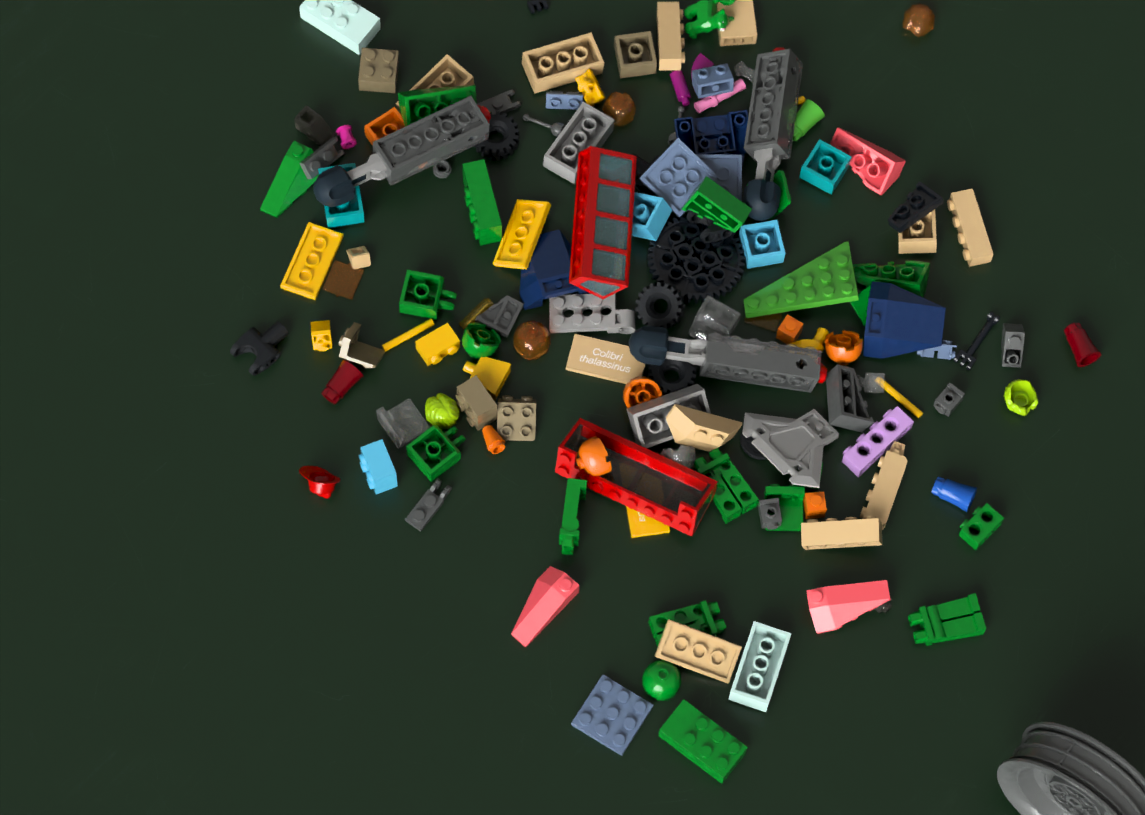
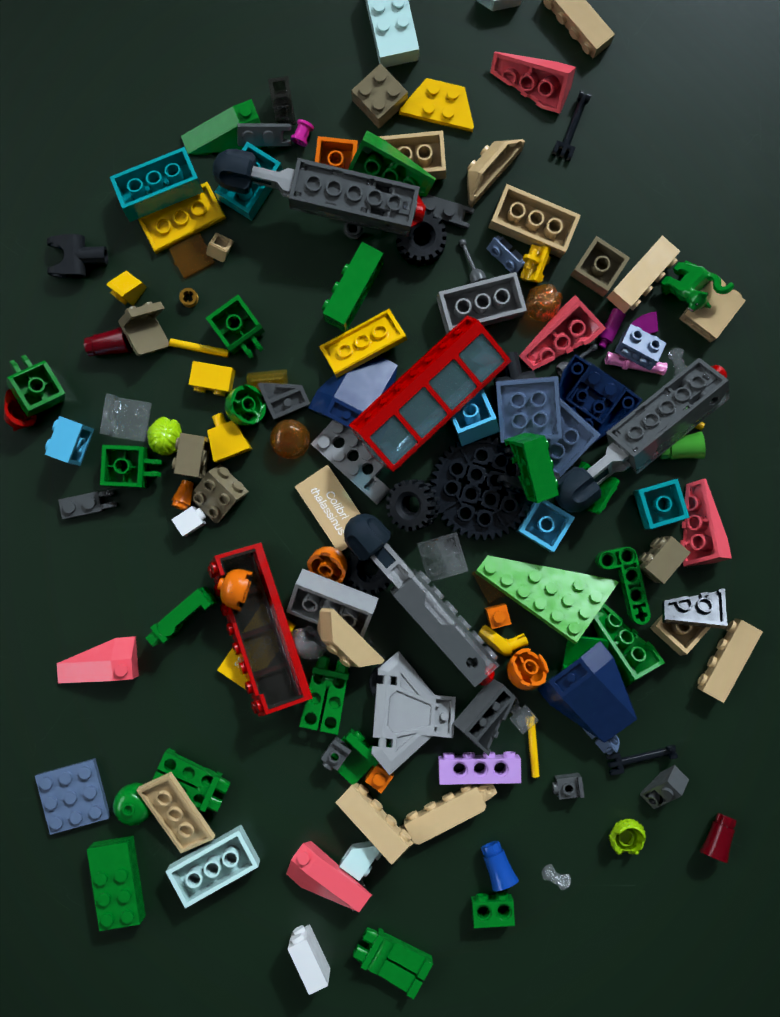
camera: 50 degrees right, 20 degrees up
(277, 249) = (156, 184): none -> teal brick
(317, 451) = (36, 376): none -> green hinge
(371, 313) = (188, 291): none -> pearl gold bush
(424, 44) = (439, 104): none -> yellow wing
(498, 54) = (490, 166): none -> tan wedge
(514, 452) = (189, 521): none -> white brick
(652, 116) = (564, 332): none -> coral wedge
(855, 238) = (628, 586): none -> green beam
(856, 569) = (359, 858): none -> light aqua slope
(860, 199) = (662, 559): none -> dark tan brick
(887, 665) = (309, 959): none -> white brick
(1007, 466) = (549, 873): none -> clear piece

